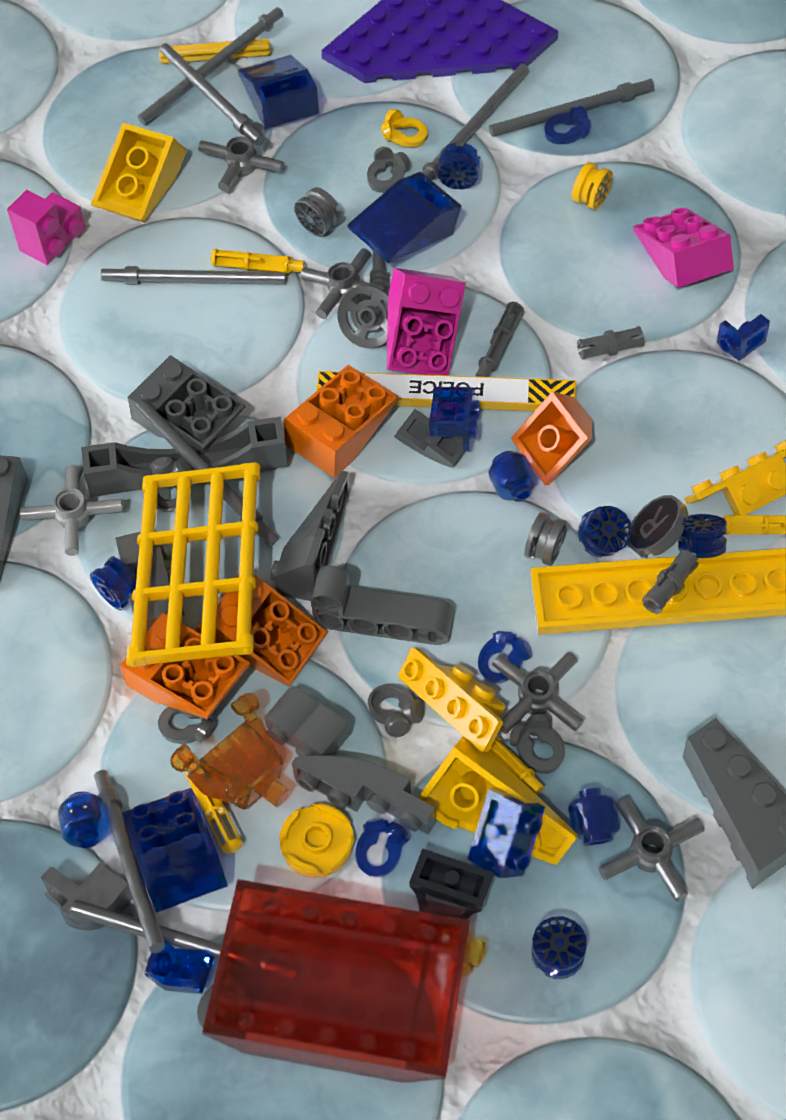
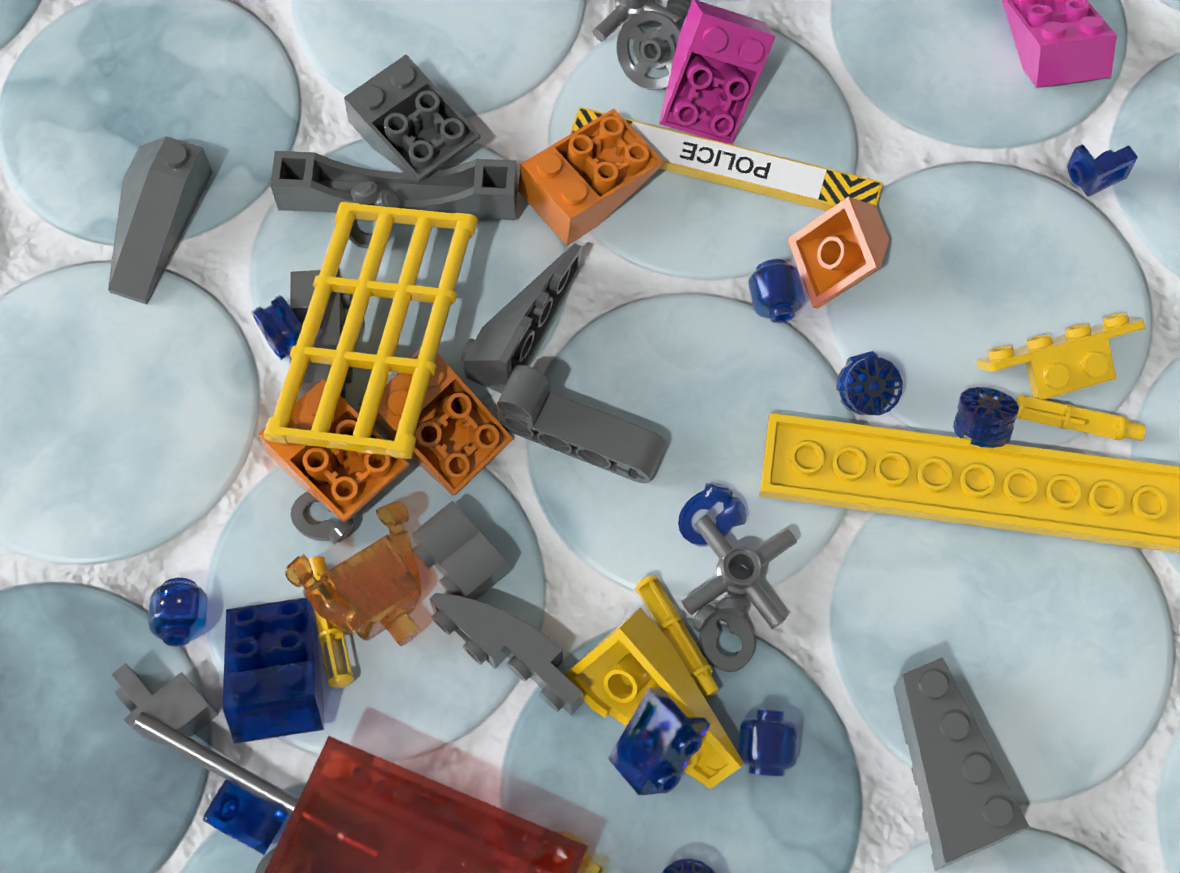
camera: 10 degrees right, 10 degrees up
(74, 519) = (256, 235): light grey bar -> none
(113, 804) = (216, 598): flat silver bar -> none
(198, 463) = (410, 201): dark grey bar -> none
(316, 840) = (440, 695): yellow tile -> none
(395, 723) = (567, 572): dark grey piece -> none
(396, 839) = (533, 714): clear blue piece -> none
(439, 449) = (692, 223): dark grey slope -> none
(449, 885) = (577, 791): black slope -> none
(455, 414) = (725, 197): clear blue bracket -> none
(455, 697) = (642, 560): yellow bracket -> none
(501, 336) = (804, 110): dark grey piece -> none
(545, 538) = (796, 380): flat silver wheel -> none
(610, 342) = (937, 142): dark grey pin -> none
(651, 862) = (845, 793): flat silver bar -> none
(657, 526) = (934, 393): tile -> none
(670, 581) = (931, 469): dark grey pin -> none

